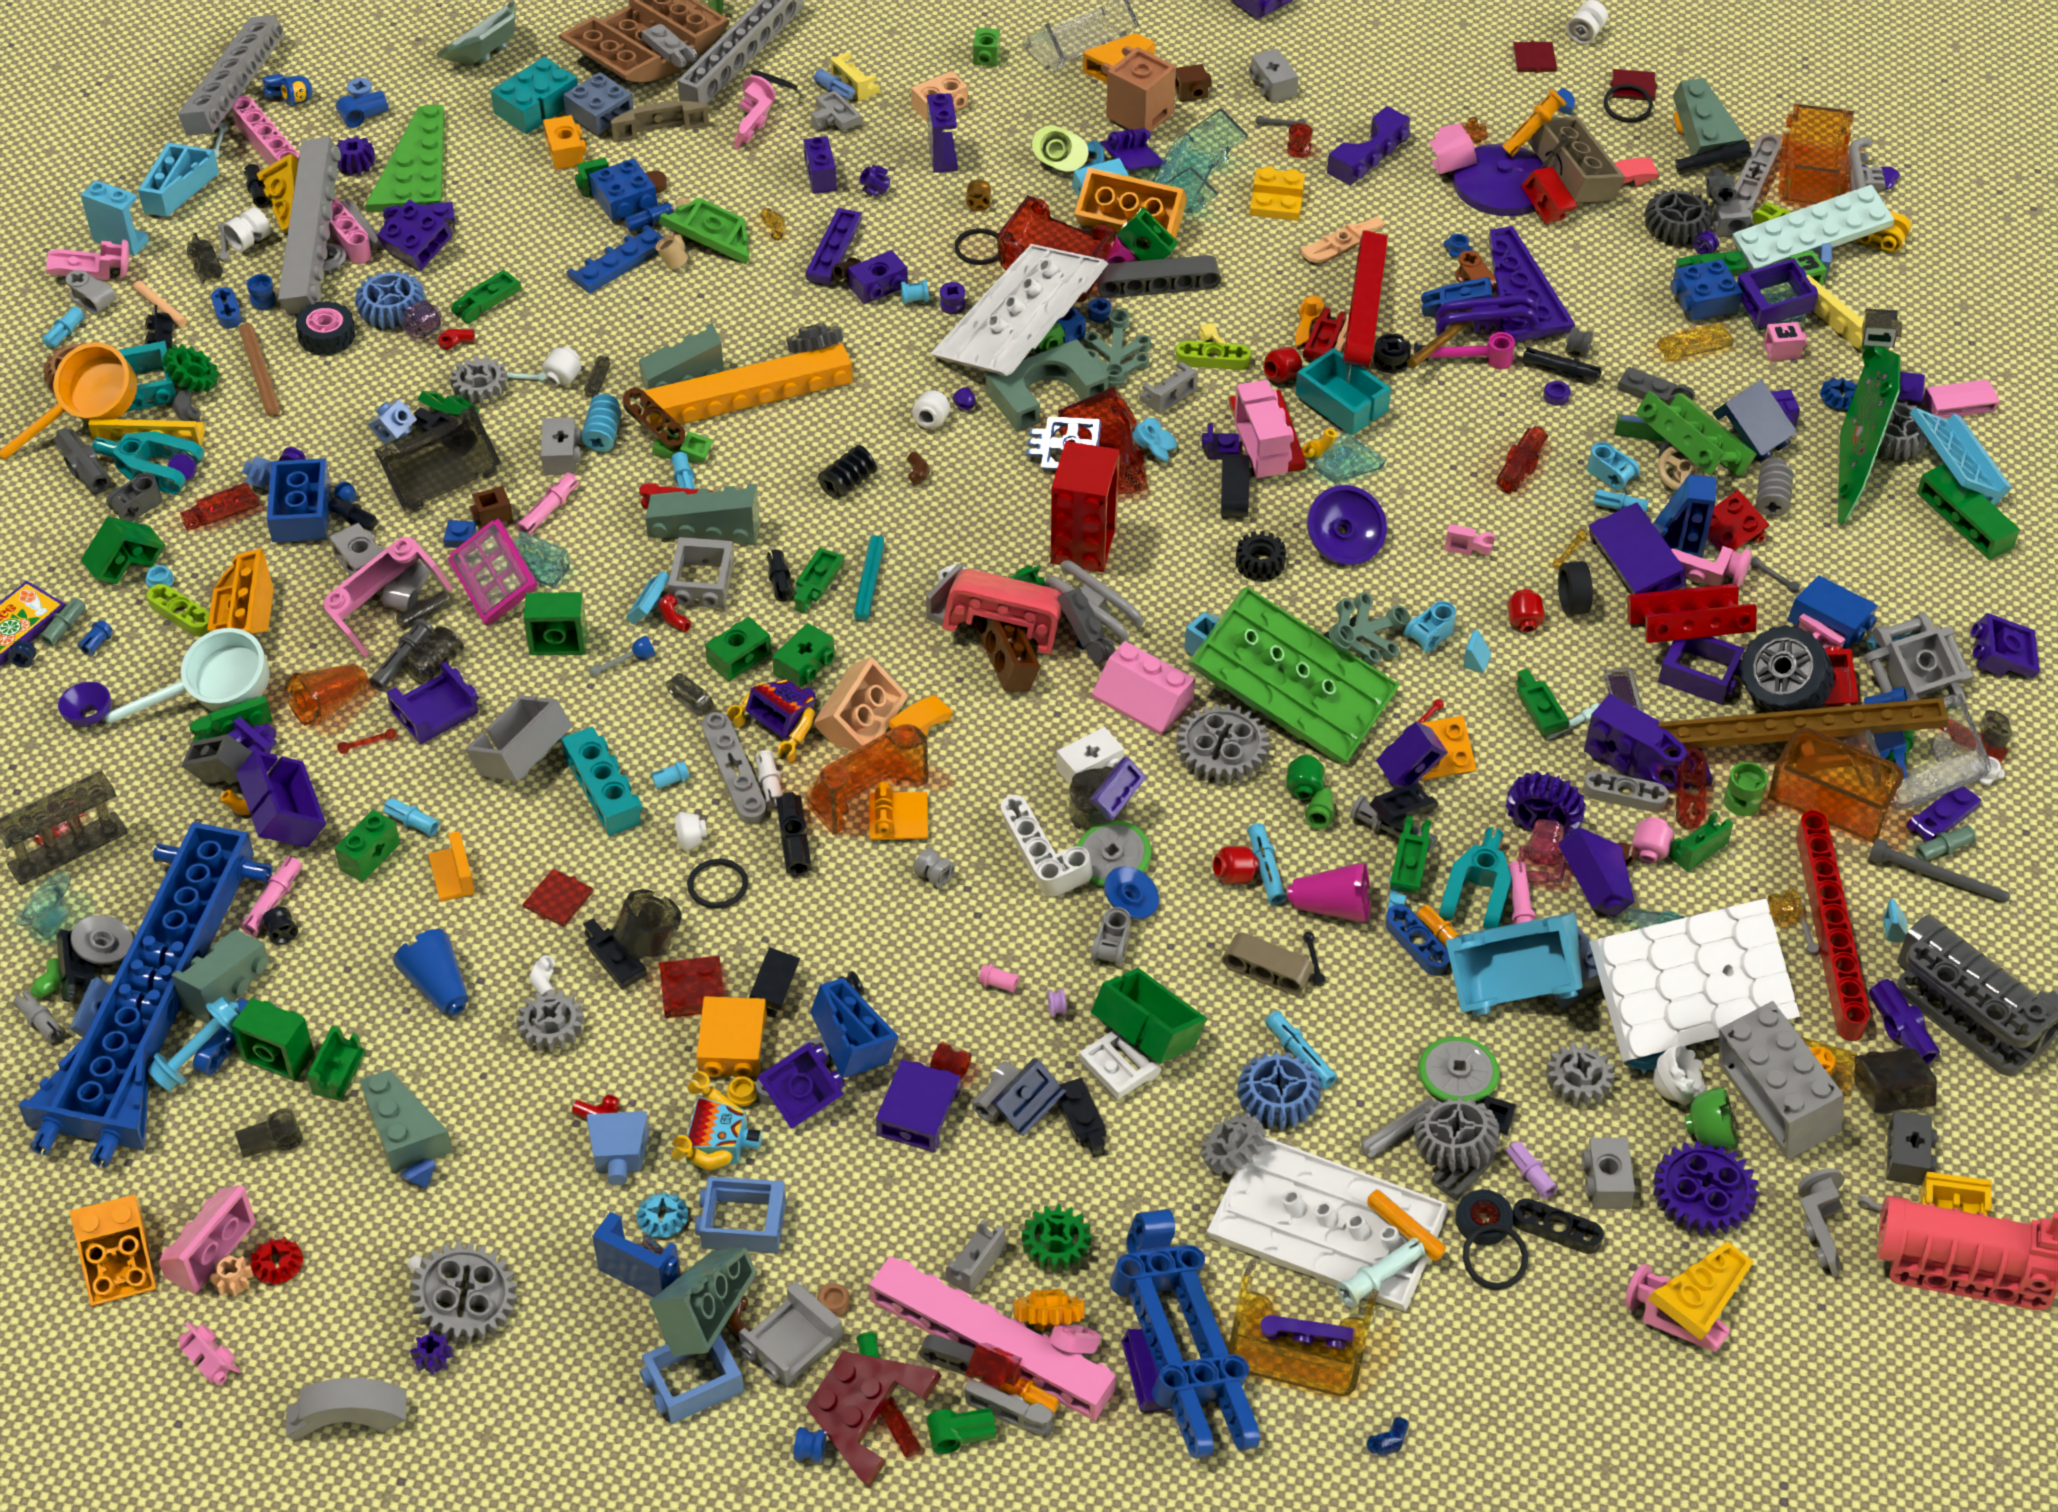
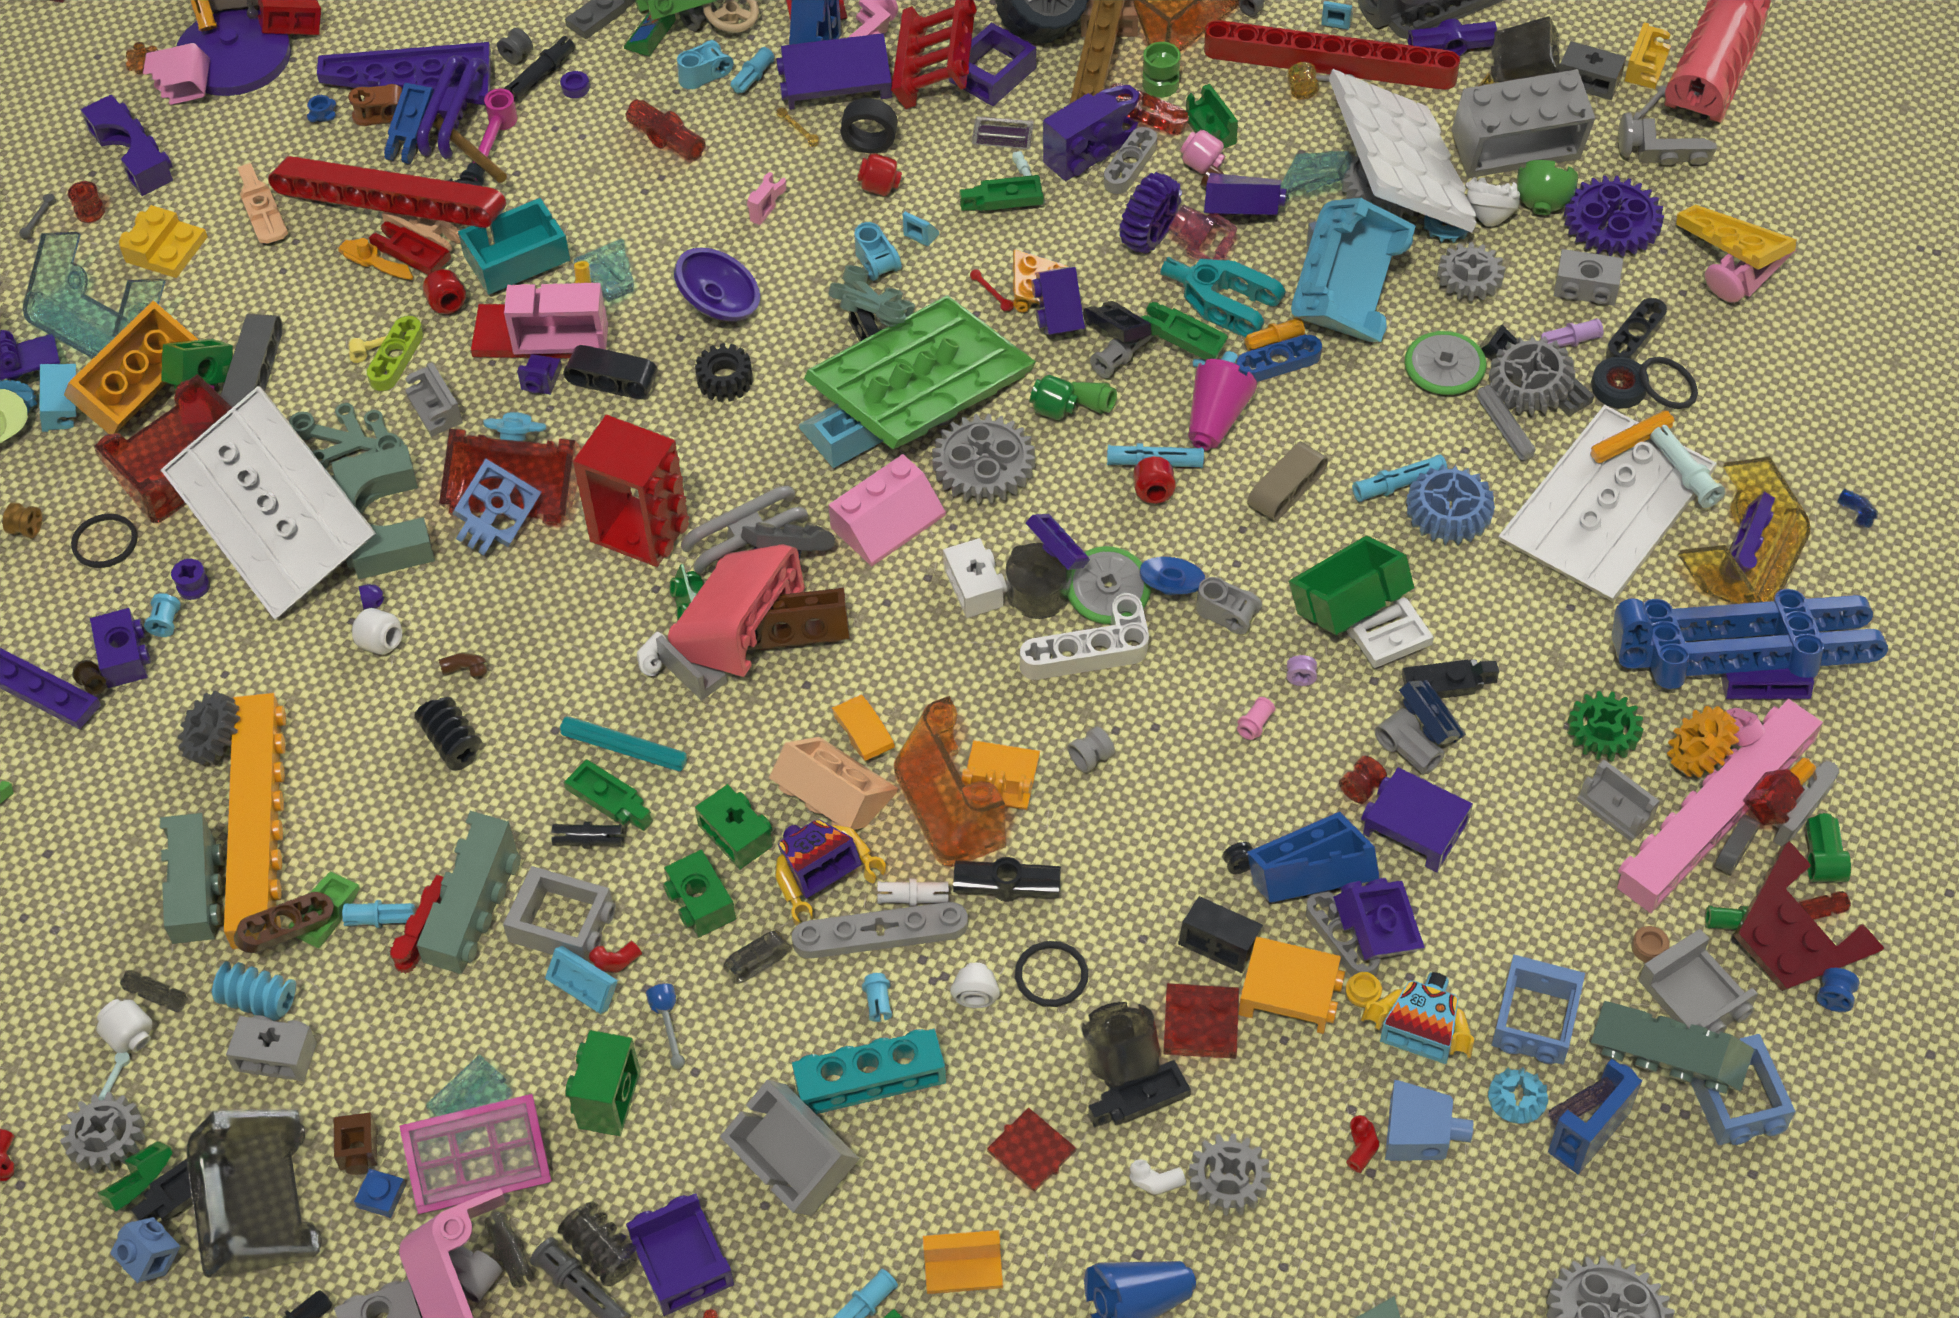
camera: 75 degrees left, 5 degrees up
(554, 496) = (360, 1067): bright pink pin -> none
(1233, 1143) = (1518, 565): light grey gear -> none
(1318, 979) = (1255, 445): black hinge -> none
(1520, 893) = (1273, 268): bright pink pin -> none

